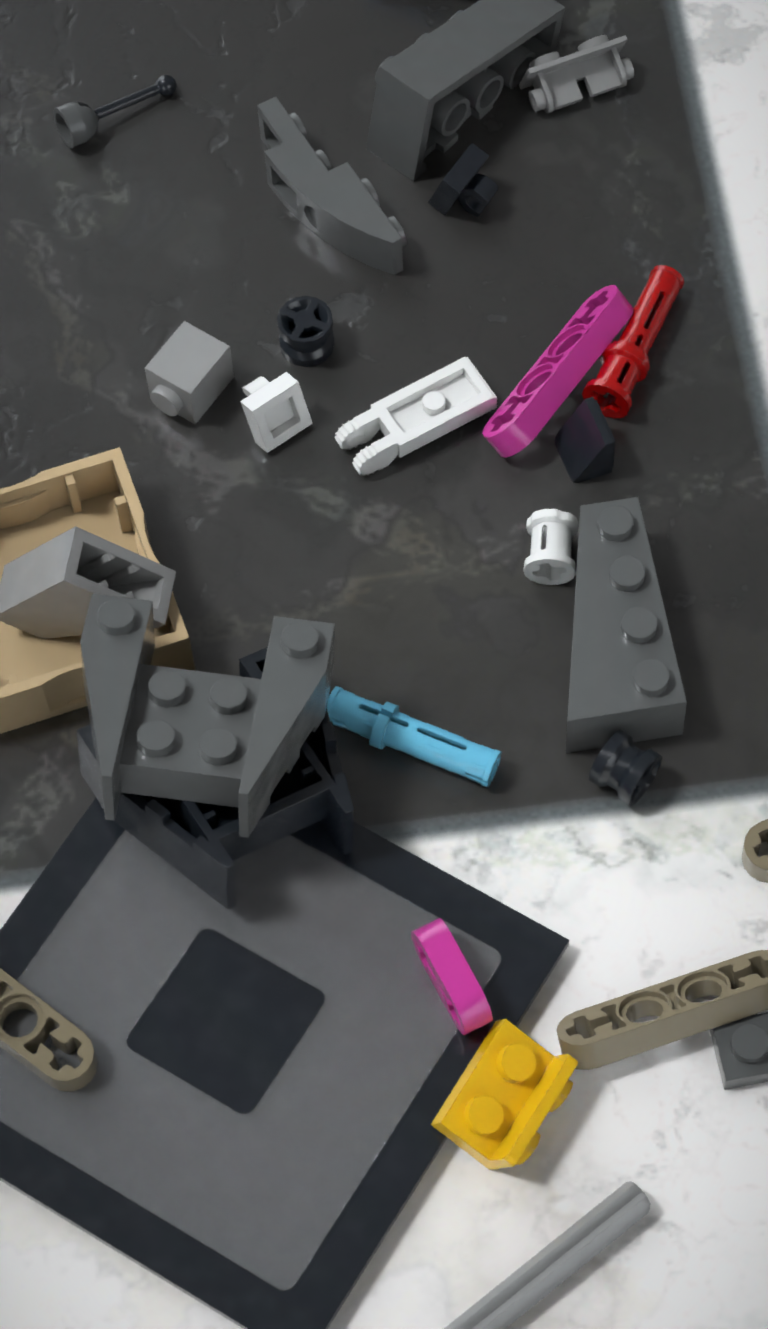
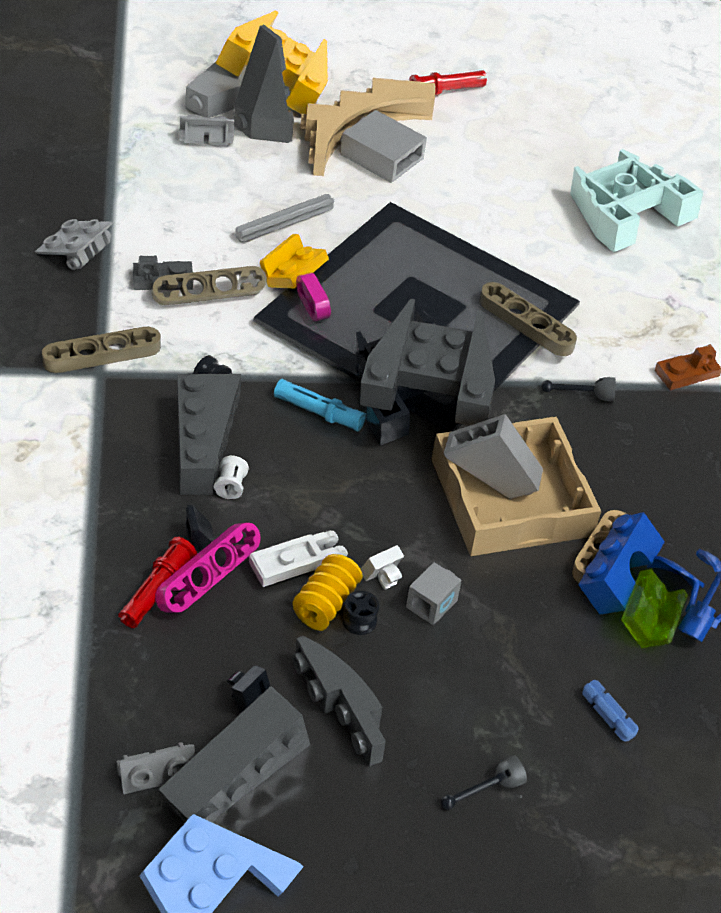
camera: 175 degrees right, 15 degrees down
(361, 344) = (326, 591): none -> yellow piece

